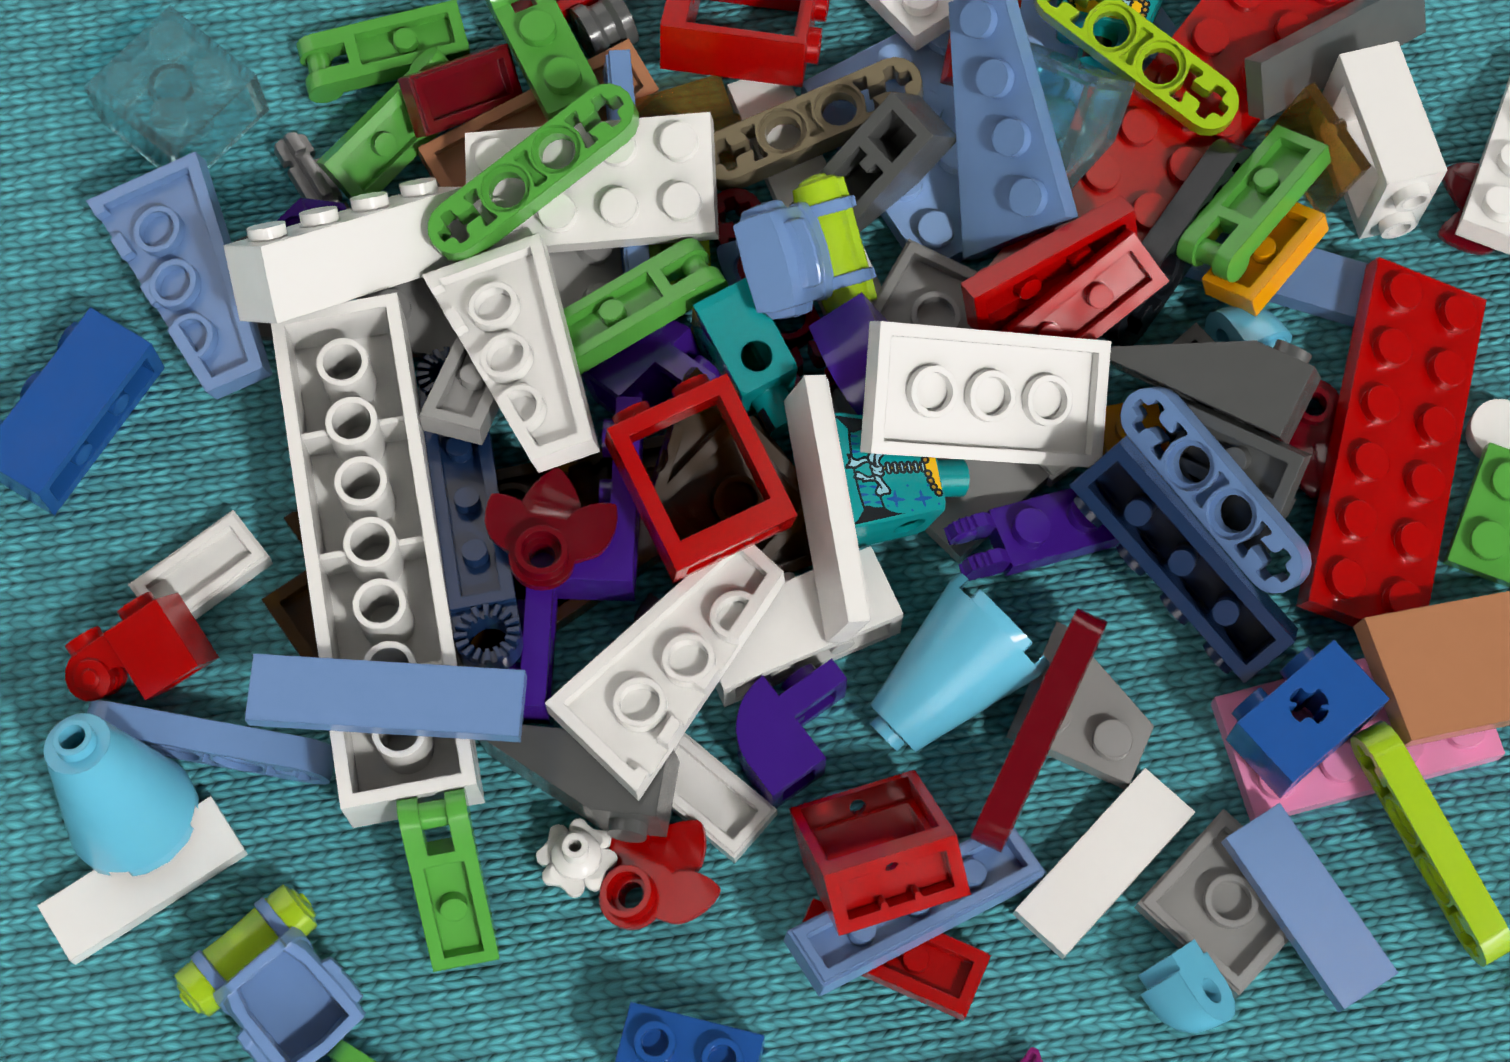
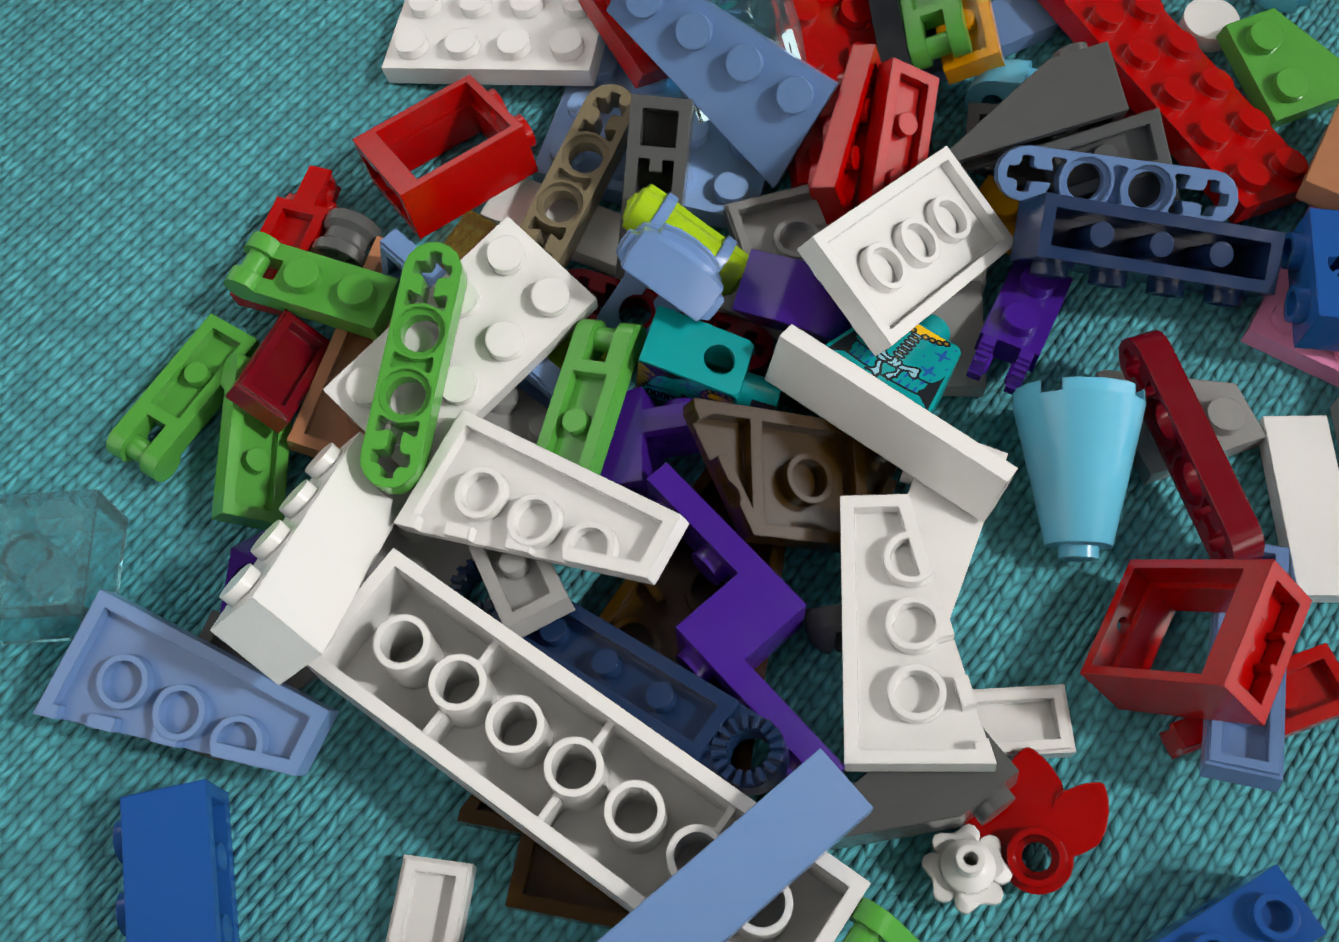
camera: 40 degrees left, 5 degrees down
(304, 172) = (204, 537): flat silver axle -> none
(549, 523) = (702, 616): dark red plate -> none
(729, 535) = (765, 526): red window -> none
(770, 731) = (1005, 635): dark purple brick -> none

